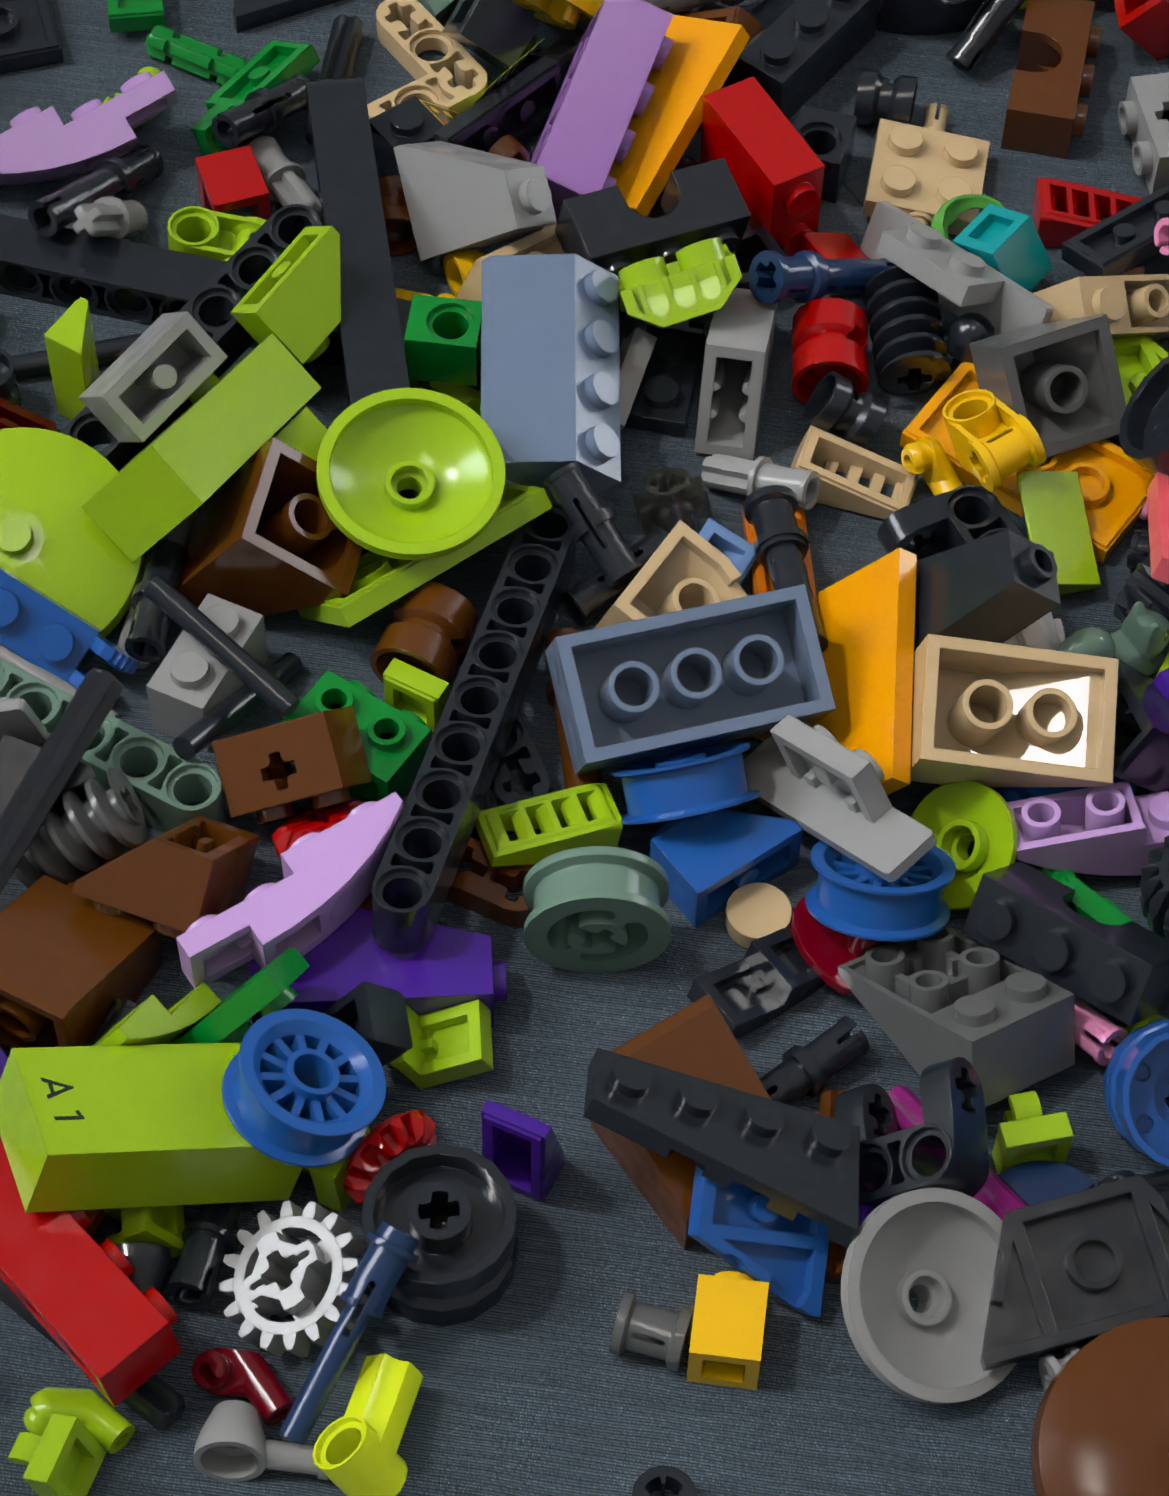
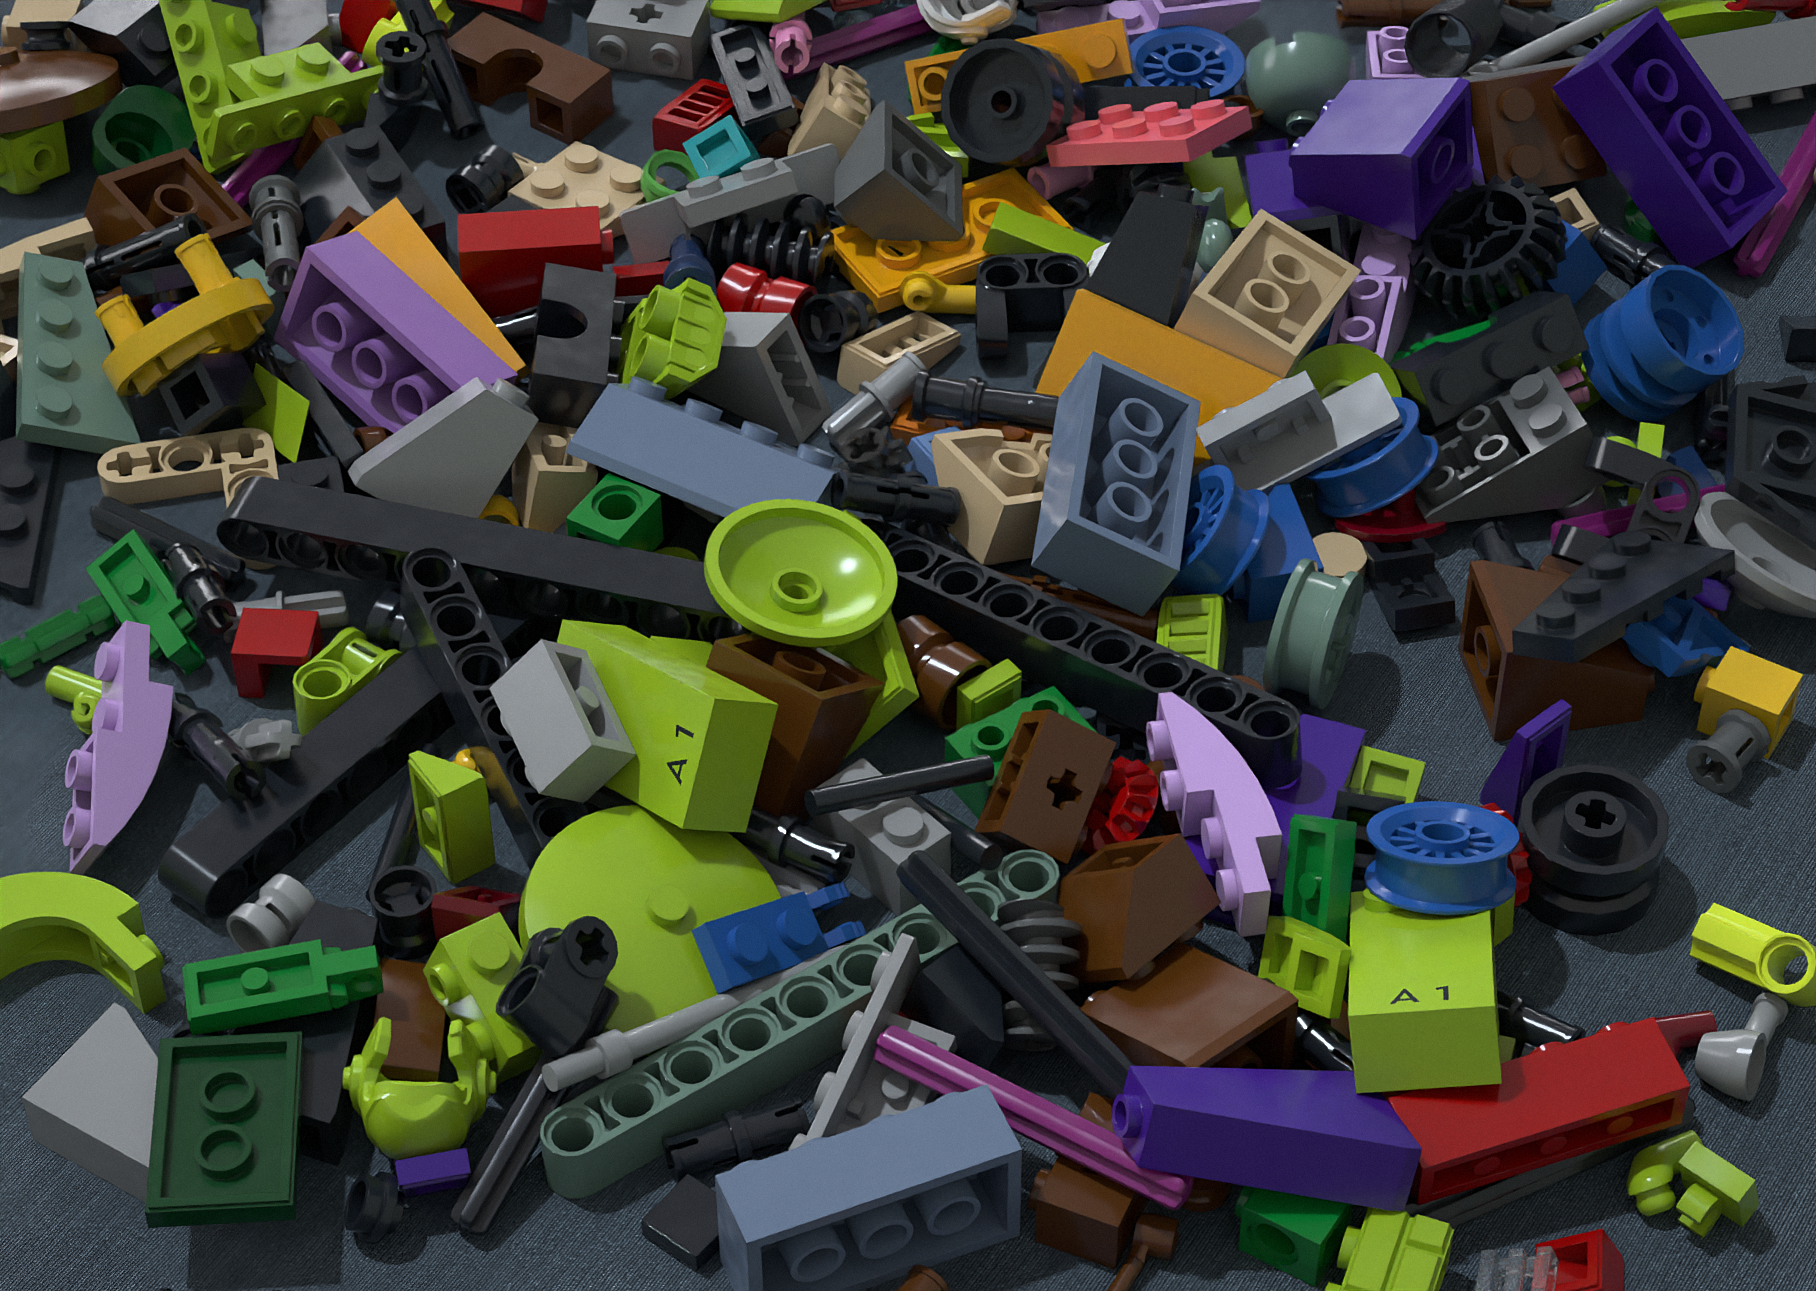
camera: 65 degrees left, 10 degrees down
(292, 1278) = (1623, 959): light grey gear -> none
(298, 295) = (513, 587): lime slope -> none
(382, 1263) = (1664, 889): dark blue pin -> none
(990, 437) = (951, 228): yellow piece -> none

